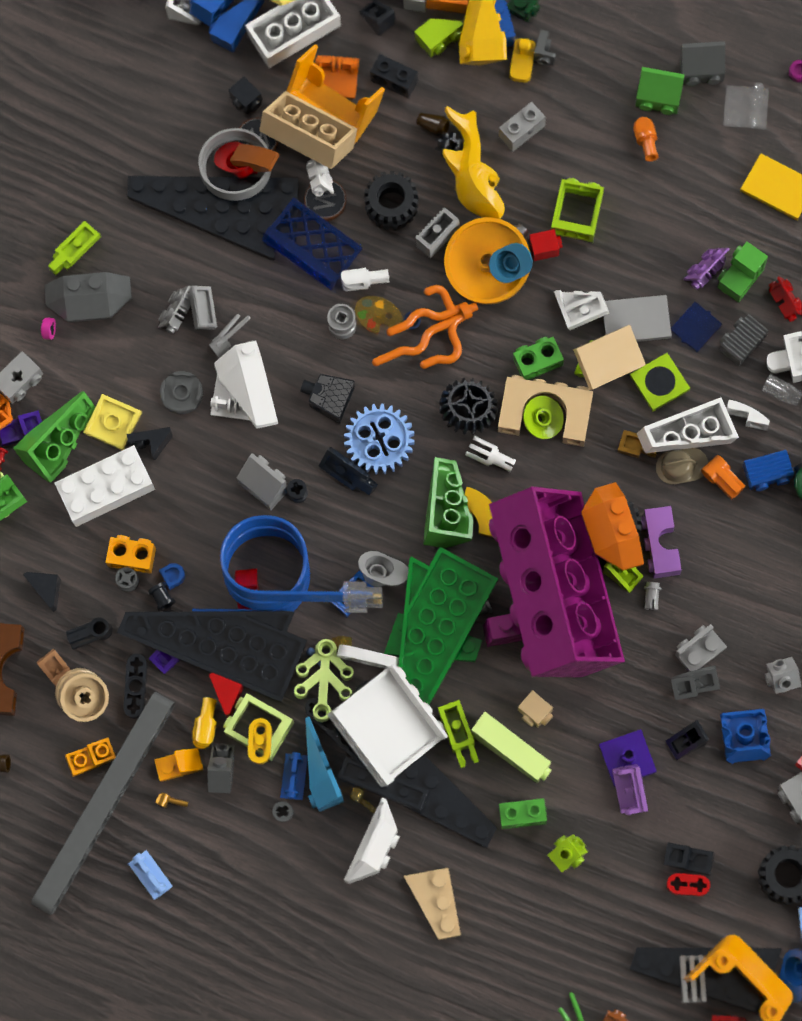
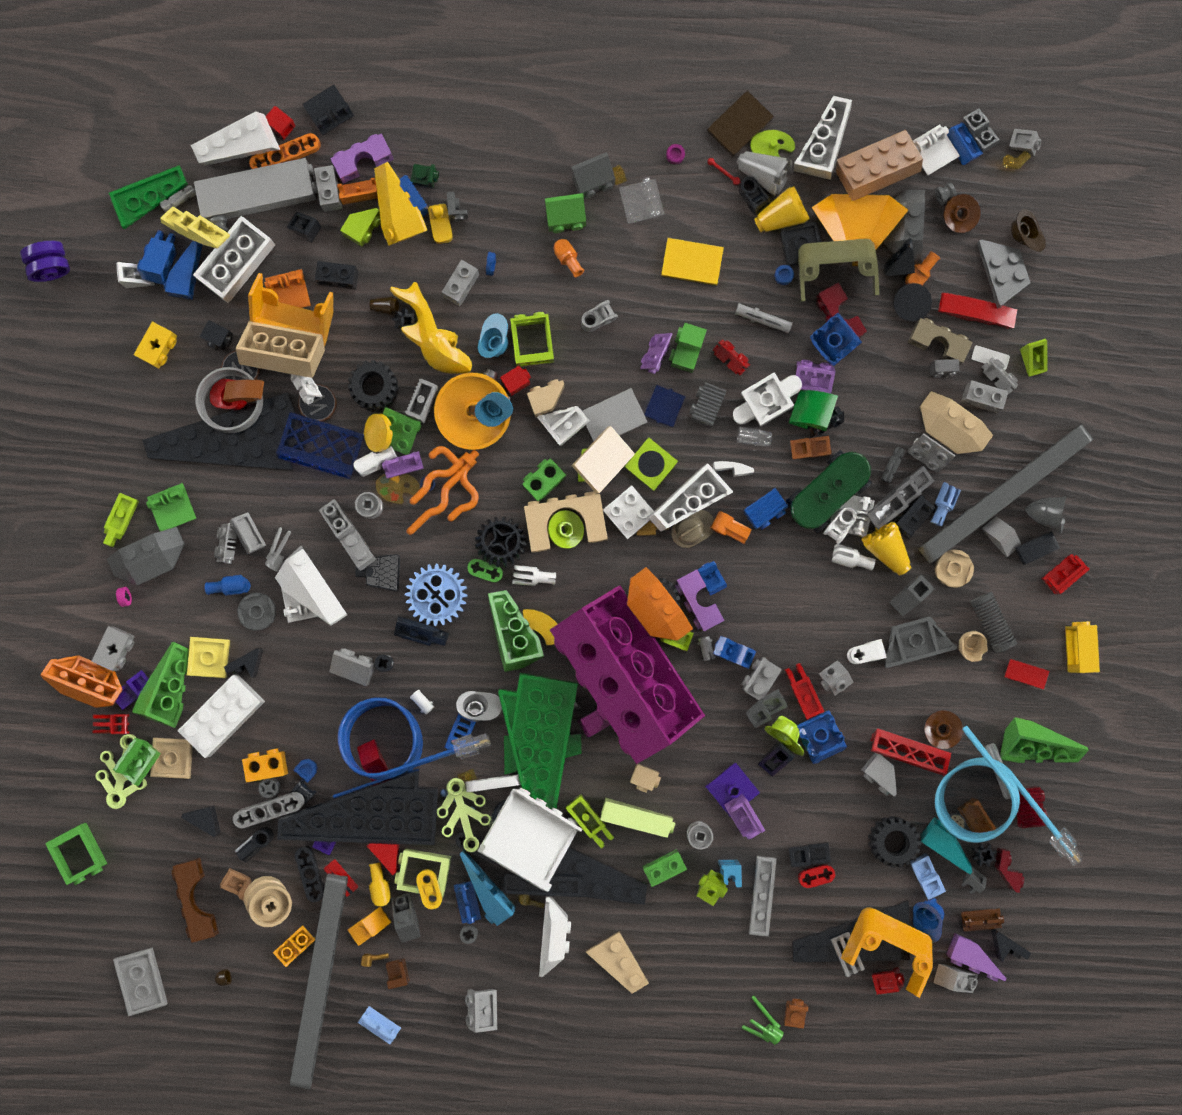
camera: 30 degrees left, 10 degrees up
(36, 515) = (174, 758): none -> tan tile
(117, 601) = (269, 812): none -> light grey beam
(132, 254) = (171, 507): none -> bright green hinge
(162, 354) = (228, 585): none -> blue arm
(165, 690) = (335, 868): none -> red sticker
(183, 75) = (156, 335): none -> yellow brick
(190, 825) = (397, 973): none -> reddish brown panel
(267, 897) = (481, 1010): none -> light grey bracket
(307, 343) = (347, 534): none -> light grey slope
(323, 547) = (422, 702): none -> white pin
(378, 249) = (378, 433): none -> yellow tile
(396, 293) = (402, 465): none -> medium lavender hinge
(399, 256) = (403, 430): none -> bright green hinge
(437, 436) = (483, 575): none -> bright green beam
(537, 192) = (493, 336): none -> dark azure piece
(561, 118) = (491, 262): none -> blue tile
(570, 274) = (545, 399): none -> tan slope
(573, 791) = (699, 835): none -> light grey wheel
(594, 837) = (732, 870): none -> dark azure hinge
(617, 422) = (629, 512): none -> white hinge
(620, 885) = (762, 896): none -> light grey tile
(661, 209) = (601, 314): none -> light grey piece
(680, 609) = (734, 652): none -> blue brick
(684, 522) = (712, 578): none -> blue bracket
(709, 716) = (786, 733): none -> lime piece
(731, 73) = (619, 175): none -> clear yellow piece
(743, 682) = (805, 693): none -> red hinge

